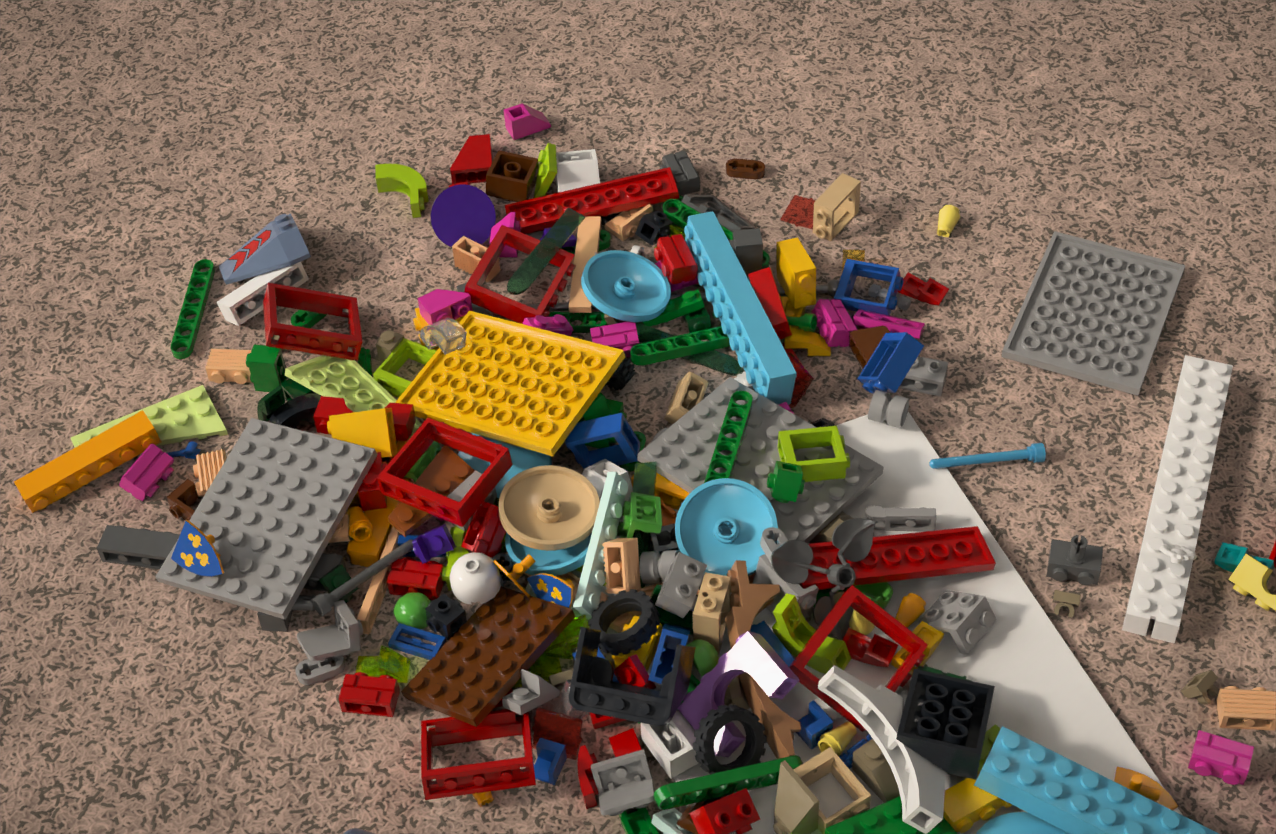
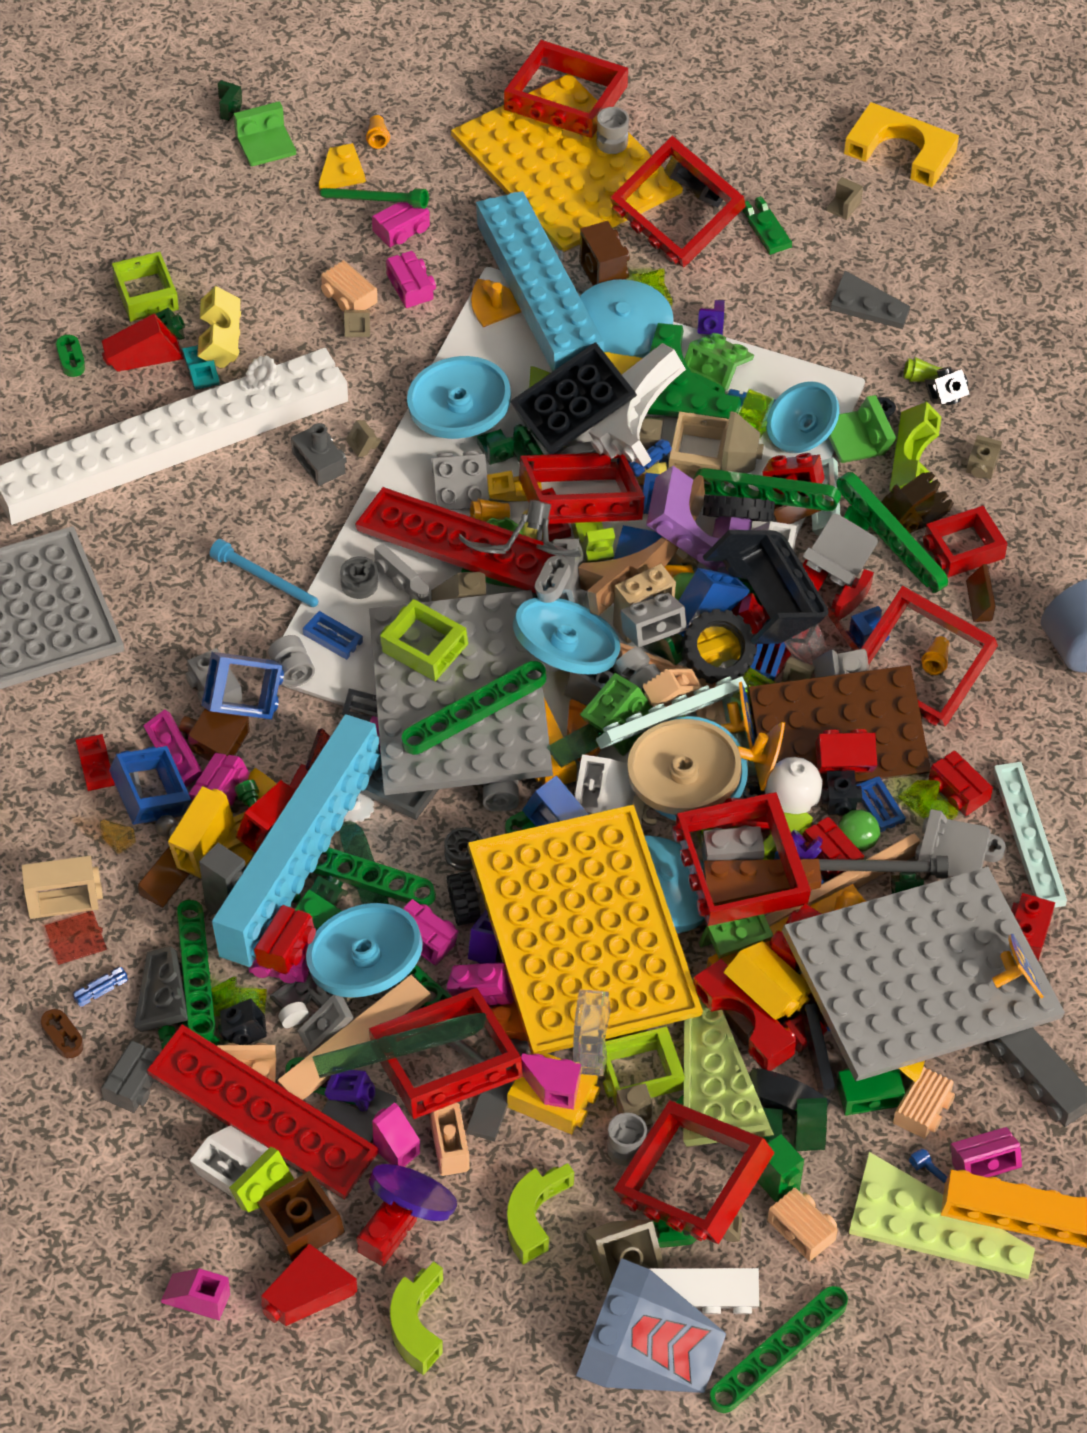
camera: 140 degrees left, 5 degrees up
(182, 499) = (974, 1102): reddish brown bracket -> none
(232, 632) = (1034, 920): none -> red brick
(288, 700) = (1029, 833): none -> light aqua plate
(329, 277) = (627, 1240): none -> dark tan slope
(373, 323) = (625, 1137): none -> light grey wheel
(395, 258) = (523, 1229): none -> lime arch
(459, 624) = (846, 751): none -> red brick
(651, 403) = (454, 844): none -> dark grey wheel
(687, 394) = (437, 816): tan brick -> none
(757, 200) = (100, 986): none -> axle
(786, 482) = (480, 621): green brick -> none
(844, 734) = (661, 448): none -> blue axle
(894, 457) = (329, 638): none -> blue tile
(924, 488) = (359, 577): none -> dark grey wheel
(972, 667) = (496, 446): none -> dark green bracket
(1039, 670) = (459, 397): none -> medium azure dish

